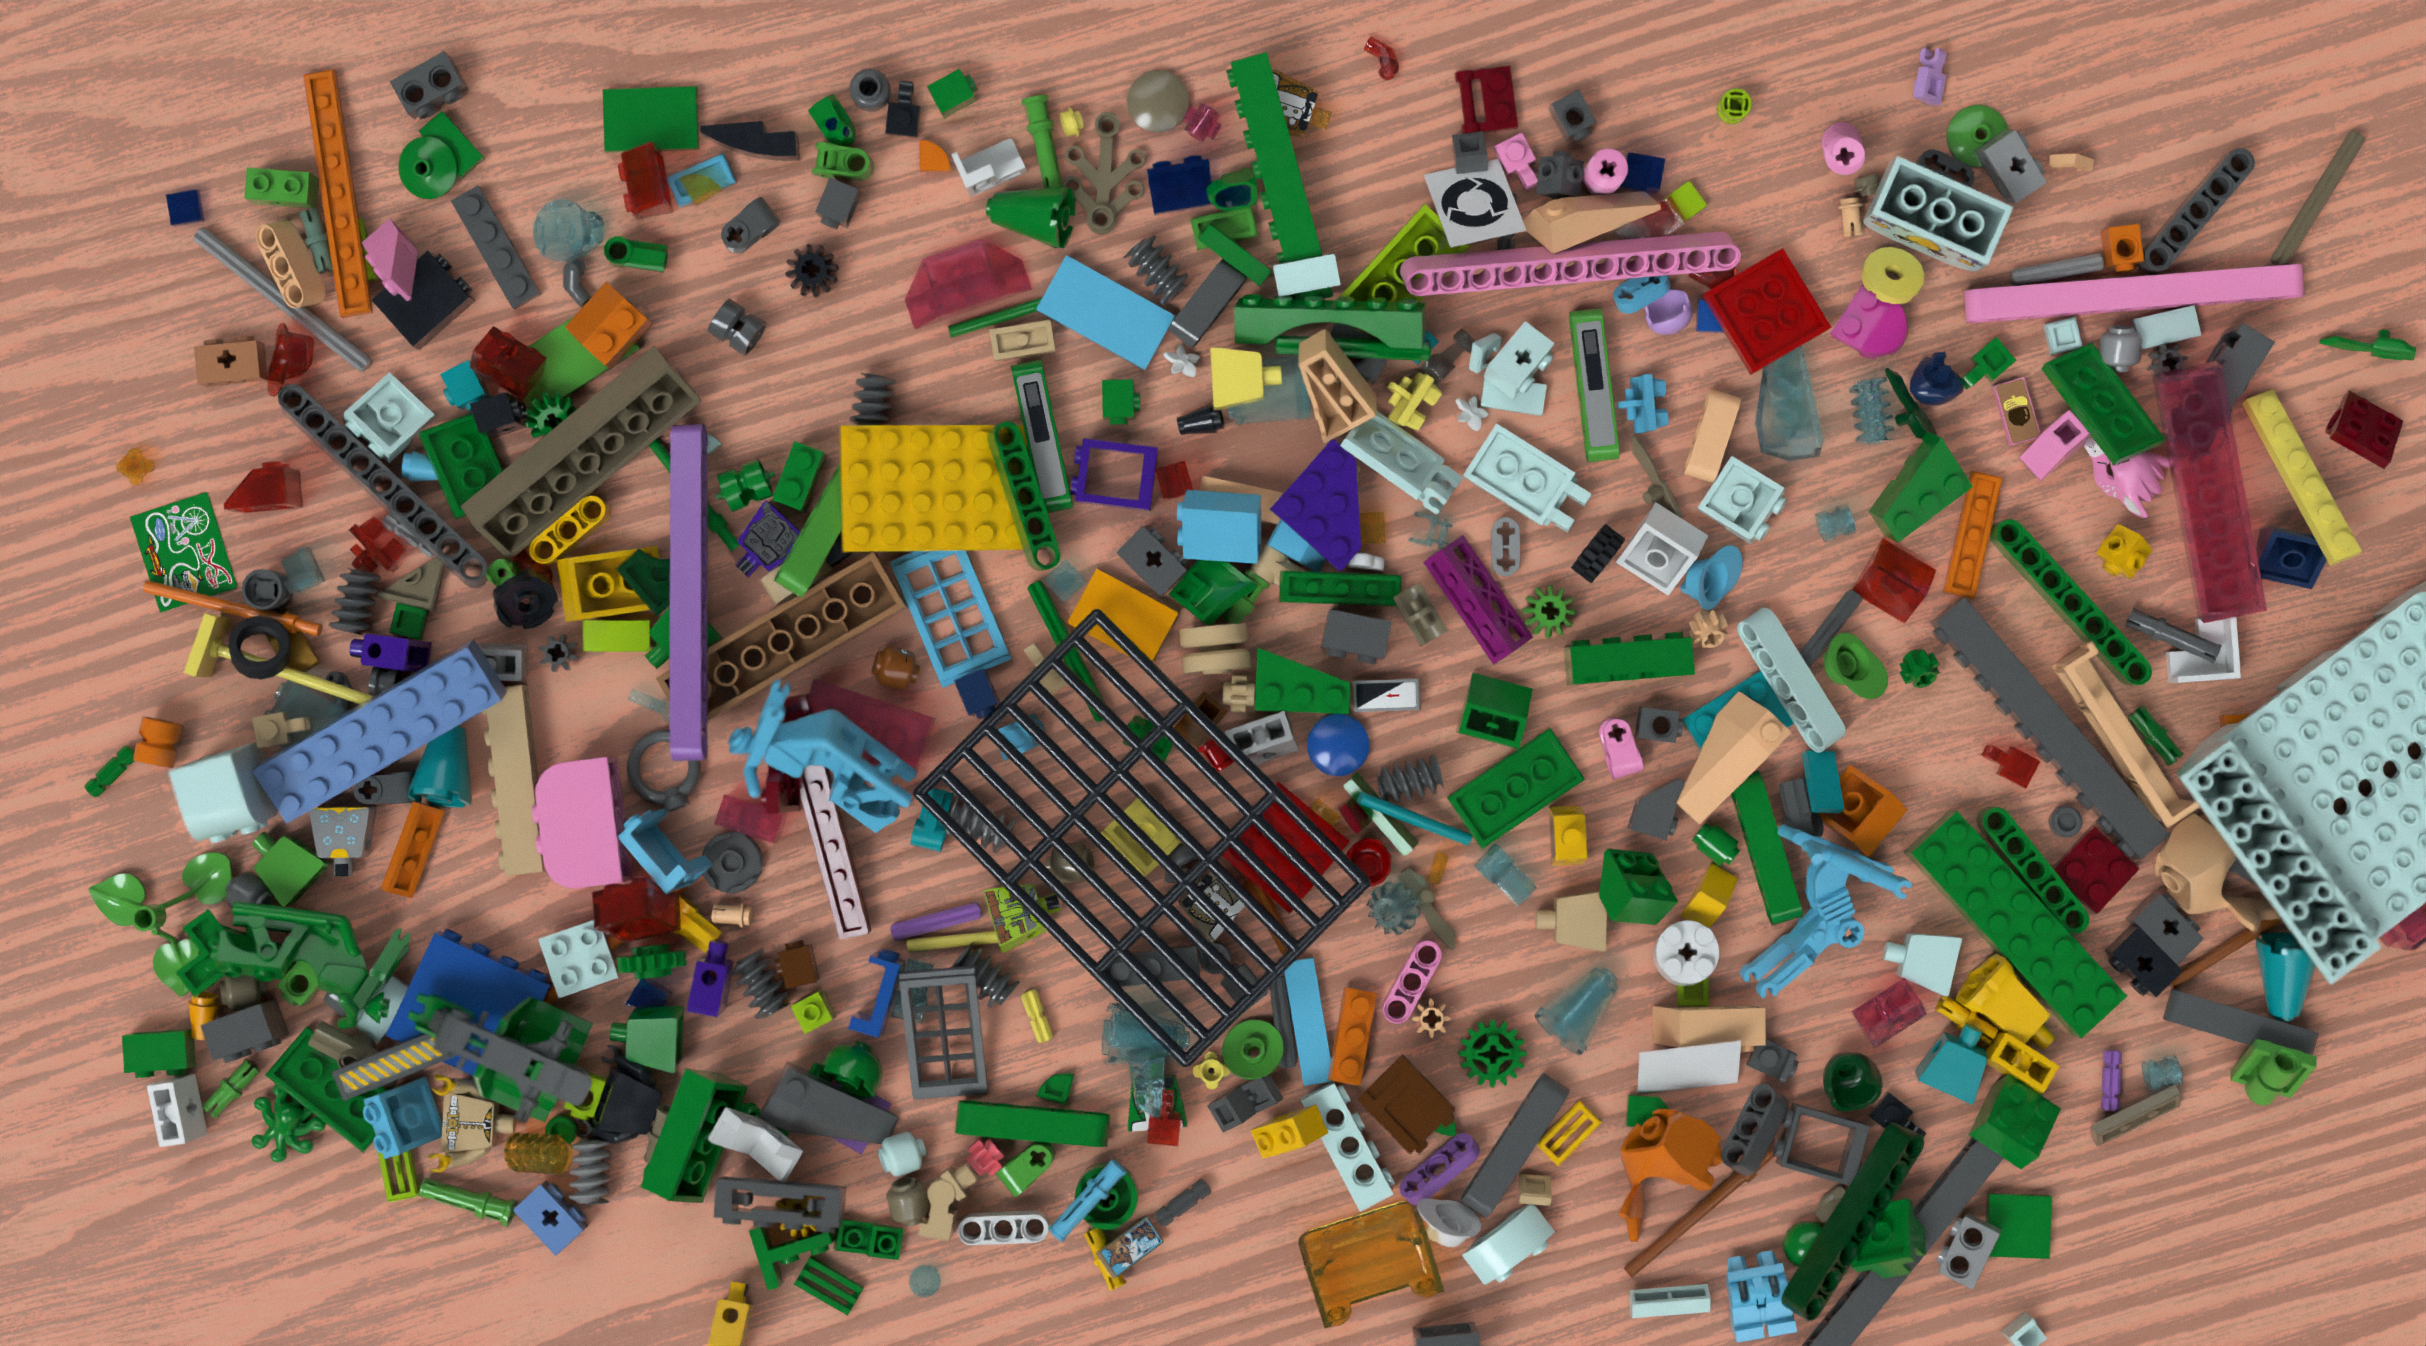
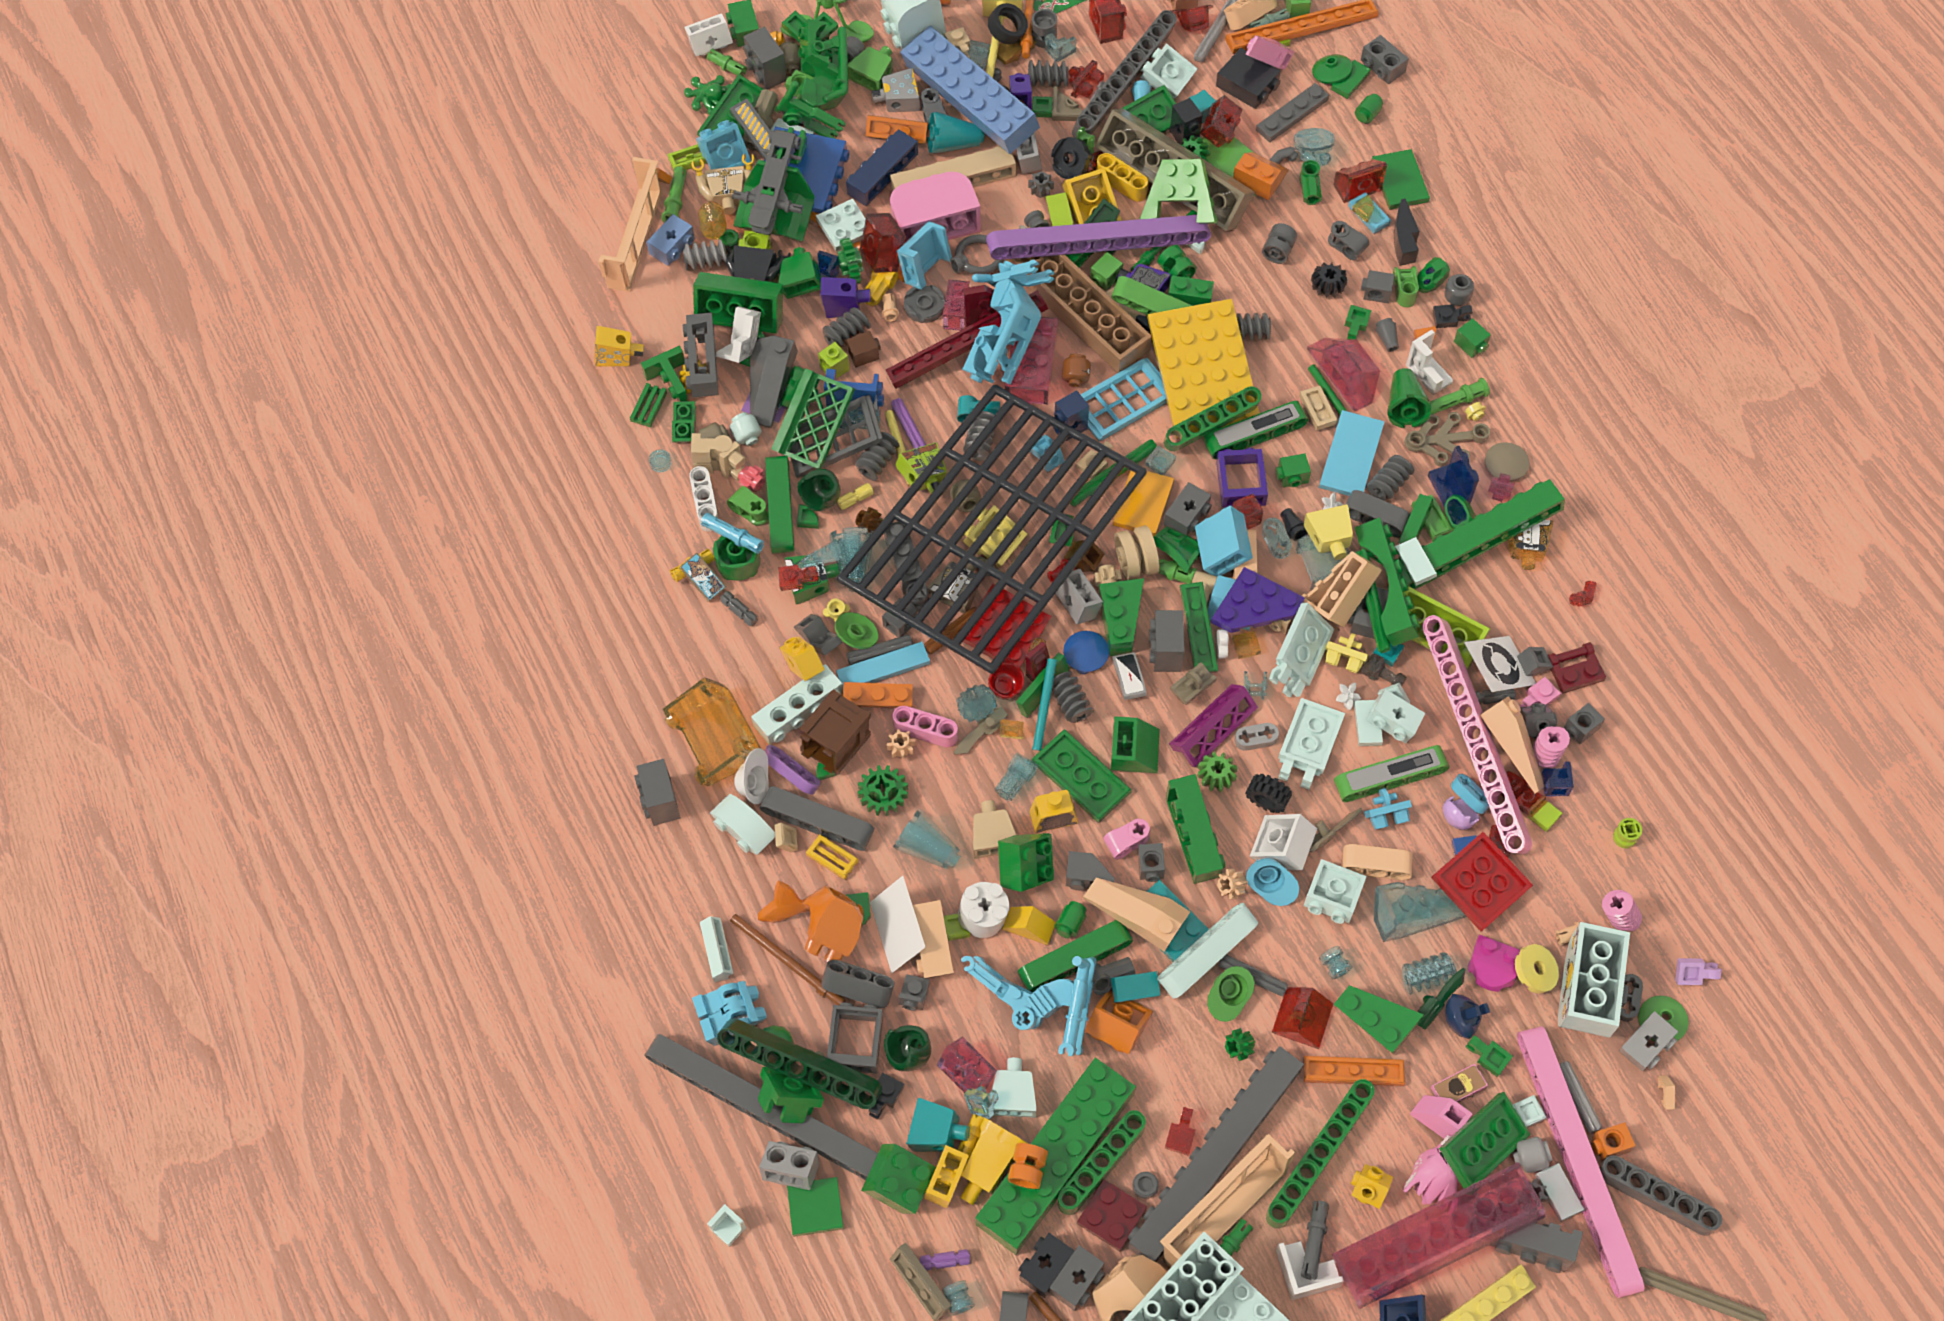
camera: 80 degrees right, 25 degrees down
(431, 1218) = (663, 176): none -> orange tile
(483, 884) = (876, 171): none -> dark blue brick
(516, 133) = (1369, 108): none -> green brick
(525, 1269) = (621, 270): none -> light nougat piece
(621, 449) = (1181, 182): none -> wing
(628, 673) = (1035, 219): none -> dark grey wheel
(734, 590) = (1105, 271): none -> bright green brick
(887, 248) = (1357, 320): none -> green plate
(910, 1083) = (795, 417): none -> green fence
(920, 210) = (1387, 332): none -> dark grey cone
(1027, 1065) = (819, 489): none -> dark green piece
(1086, 1004) = (868, 519): none -> reddish brown gear
(1213, 441) = (1272, 539): none -> clear light blue beam
(1947, 1003) = (981, 1102): none -> clear light blue tile
(2053, 971) = (1024, 1174): none -> orange wheel

